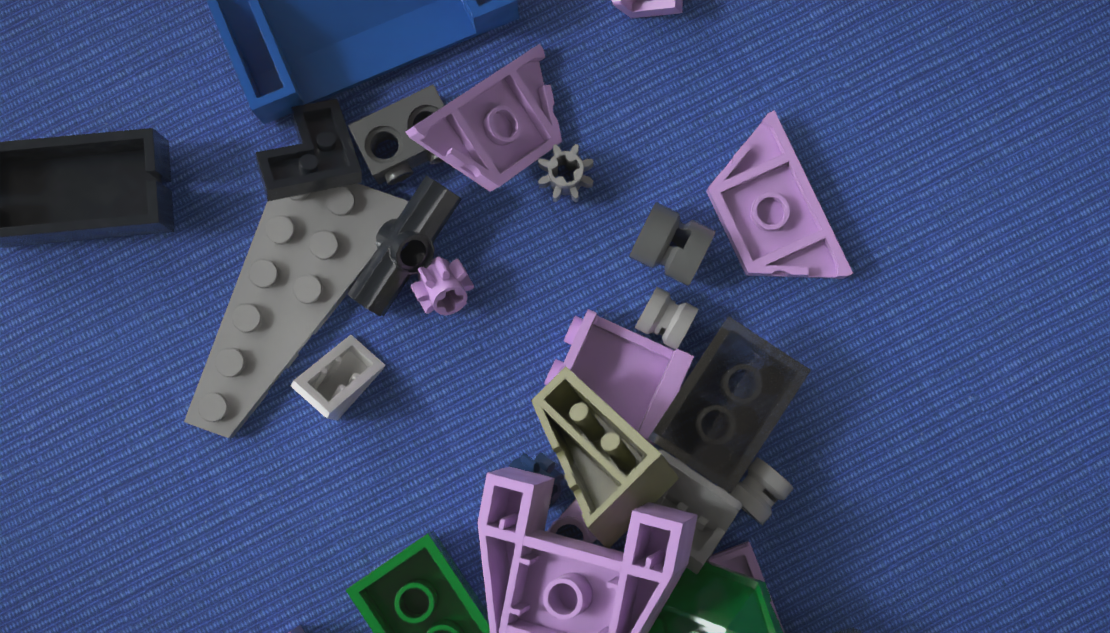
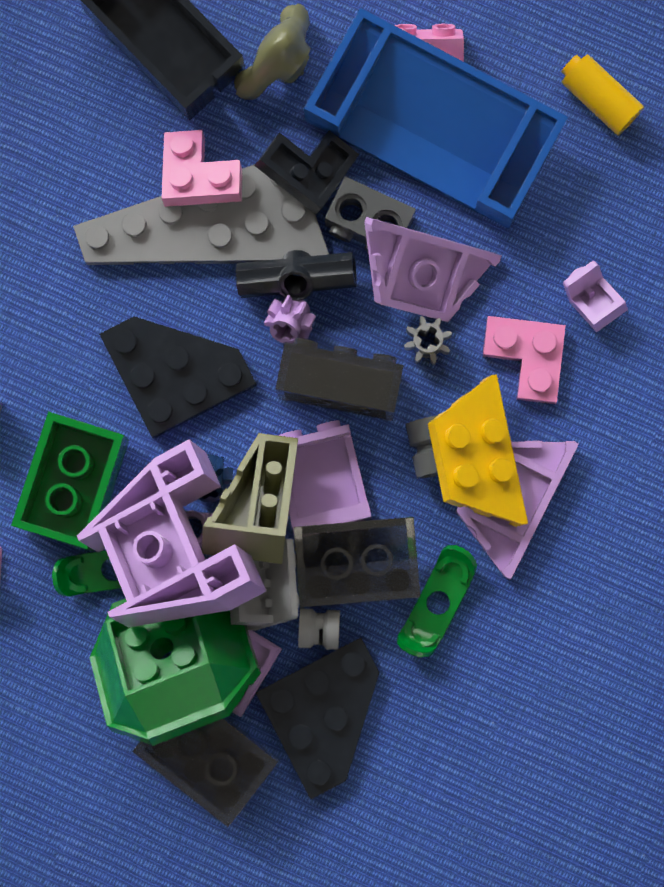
camera: 55 degrees right, 0 degrees up
(183, 98) = (279, 56): none -> olive head
(233, 273) = (193, 181): none -> bright pink plate
(338, 378) = (178, 301): white slope -> none
(402, 437) = (174, 372): none -> black plate
(540, 281) = (339, 379): none -> clear smoke brick
(653, 80) = (536, 346): none -> bright pink plate
(666, 318) = (384, 482): light grey wheel -> none
(715, 210) = (477, 455): none -> yellow wing
(837, 390) = (451, 576): none -> green piece
(840, 552) = (322, 714): none -> black plate

